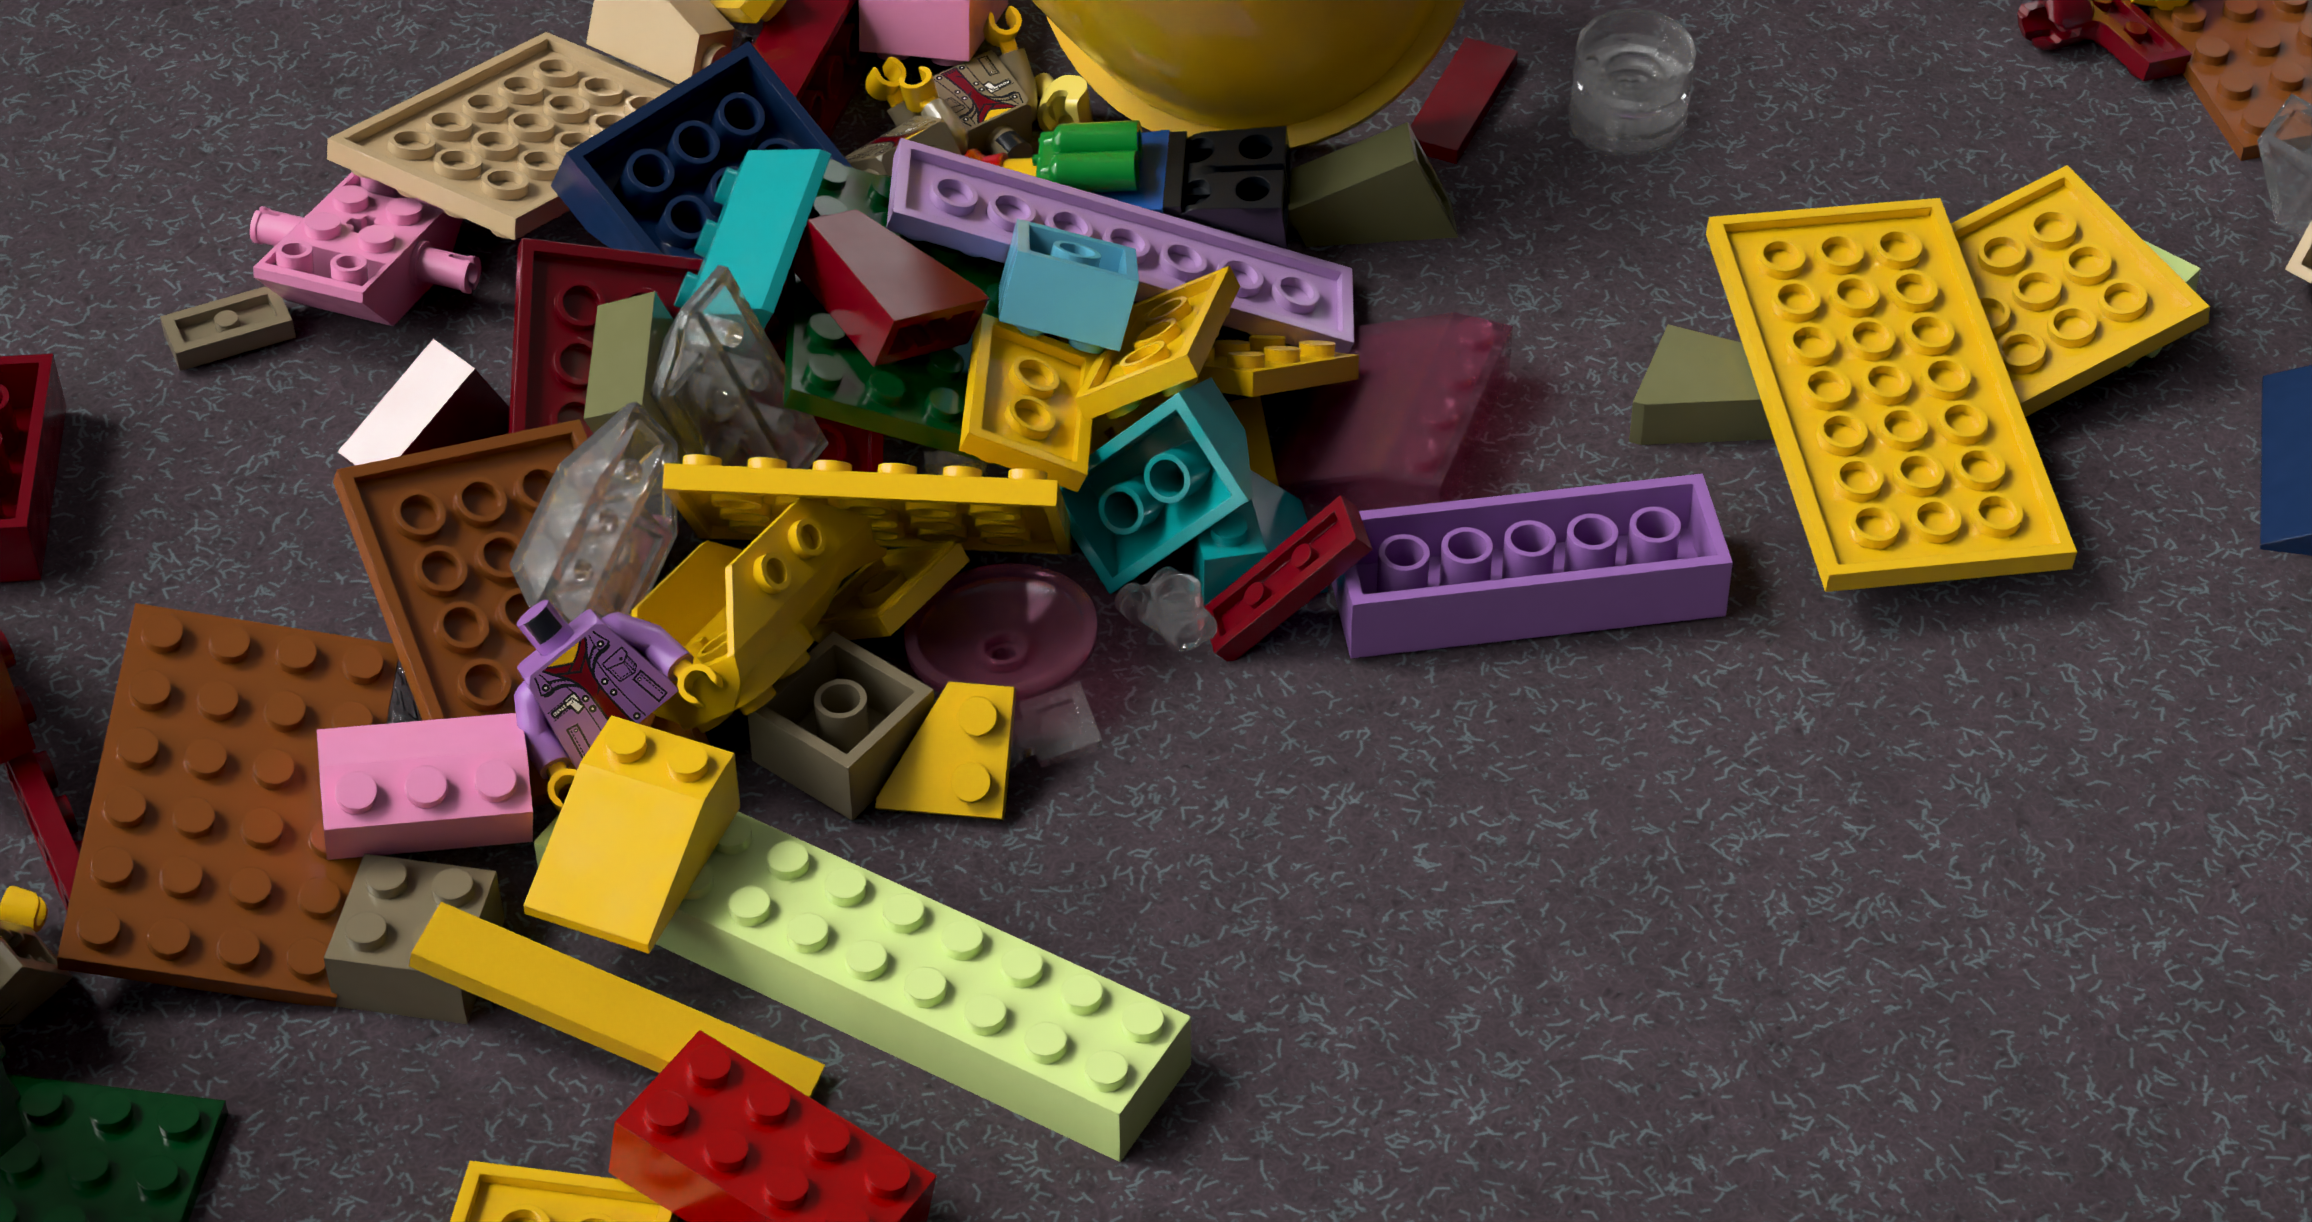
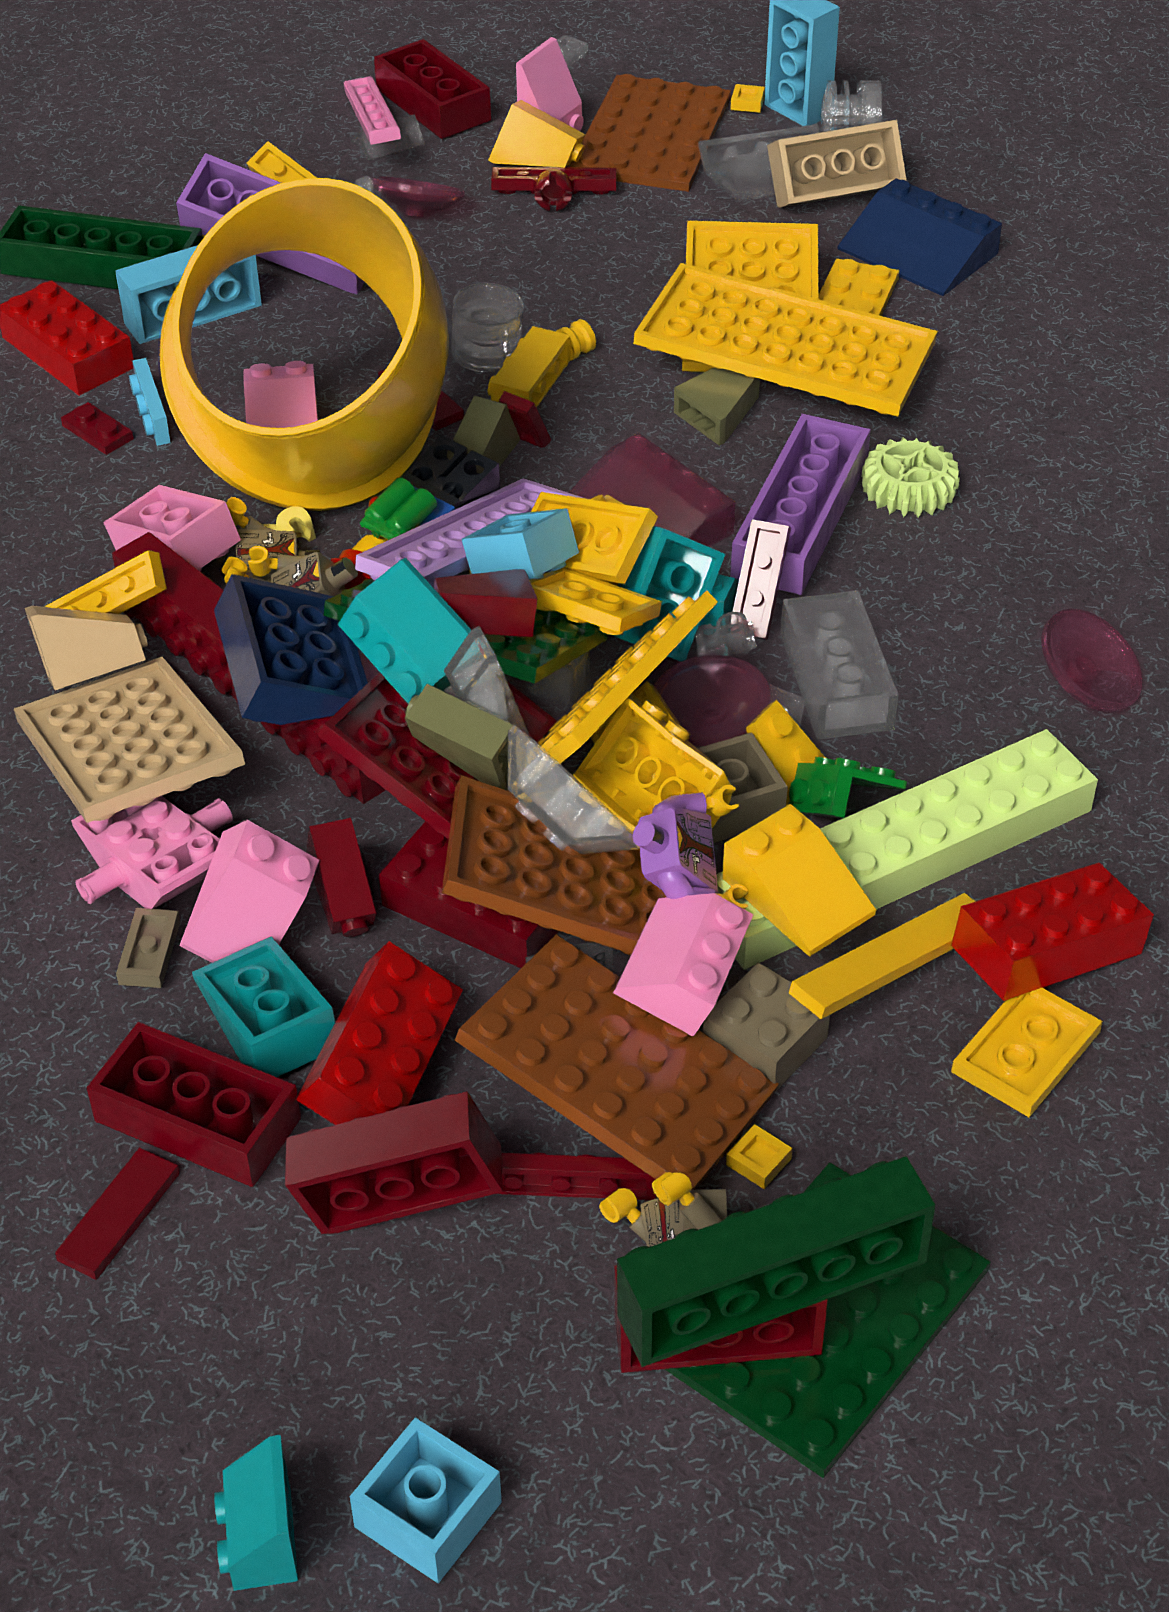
camera: 60 degrees left, 0 degrees up
(164, 463) = (266, 1007): none -> teal slope
(191, 556) = (380, 1039): none -> red brick
(196, 1024) = (759, 1156): none -> yellow plate
(303, 354) = (248, 892): none -> bright pink slope
(930, 826) = (825, 785): none -> green bracket
(1187, 741) = (838, 665): none -> clear brick
(1446, 993) = (1091, 661): none -> clear pink dish
(1451, 208) = (526, 420): none -> dark red tile
(1597, 175) = (532, 366): none -> yellow brick
(1715, 187) = (581, 338): none -> yellow wheel
(1715, 670) = (910, 476): none -> yellowish green gear
(2147, 443) = (859, 285): none -> yellow plate

